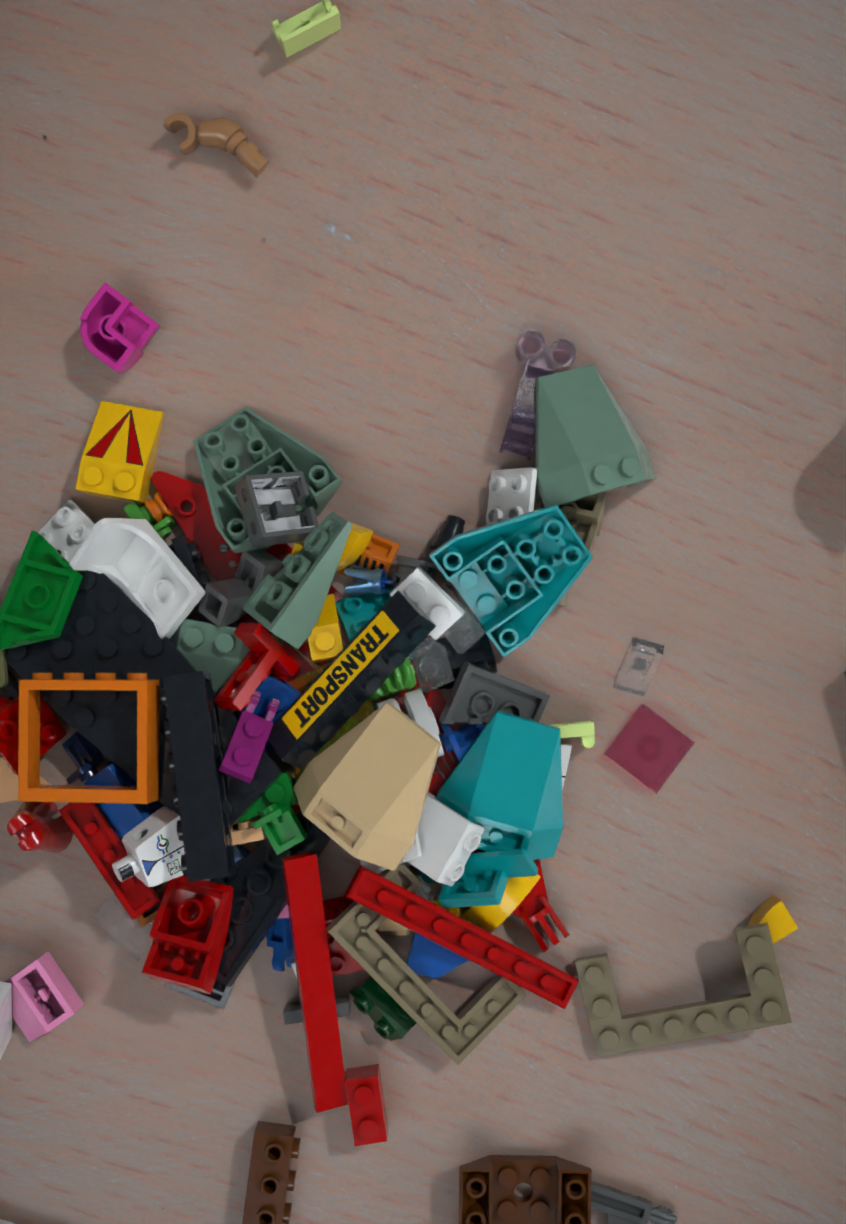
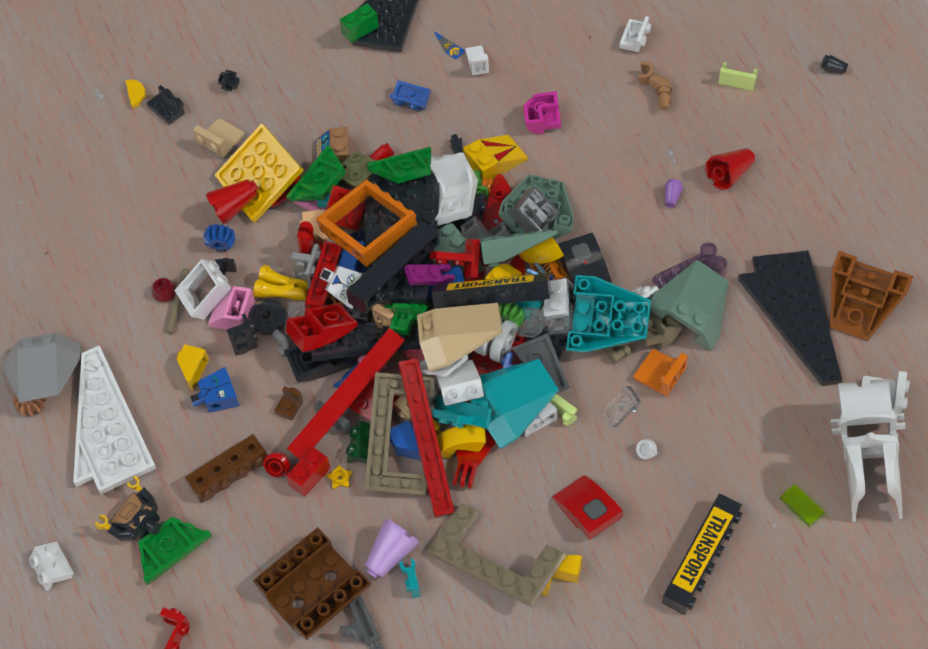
camera: 50 degrees right, 30 degrees down
(32, 905) = (279, 286): none -> yellow piece
(59, 486) = (456, 144): none -> black piece
(69, 858) = (305, 264): none -> light grey bracket
(73, 1115) = (192, 364): none -> yellow slope
(87, 977) = (270, 307): none -> black plate
(100, 1013) = (243, 336): none -> black bracket
(104, 81) = (635, 35): none -> white bracket
(134, 969) = (283, 340): none -> light grey arm
(143, 1116) = (216, 392): none -> blue torso
(245, 1040) = (289, 403): none -> reddish brown bracket
(319, 1130) = (276, 464): none -> red cone
(398, 293) = (672, 192): none -> medium lavender cone
(399, 508) = (584, 258): none -> black slope
(402, 1074) = (339, 471): none -> yellow plate
(437, 188) = (728, 167): none -> red cone
(560, 1098) = (389, 548): none -> lavender cone
(622, 1110) = (410, 583): none -> teal plate
(631, 568) = (661, 371): none -> orange bracket
(649, 748) = (591, 450): clear pink plate -> none
(684, 318) = (791, 300): none -> black wing
(712, 687) = (646, 449): none -> white tile
(718, 826) = (588, 506): none -> red slope
(770, 230) = (863, 295): none -> dark orange wedge

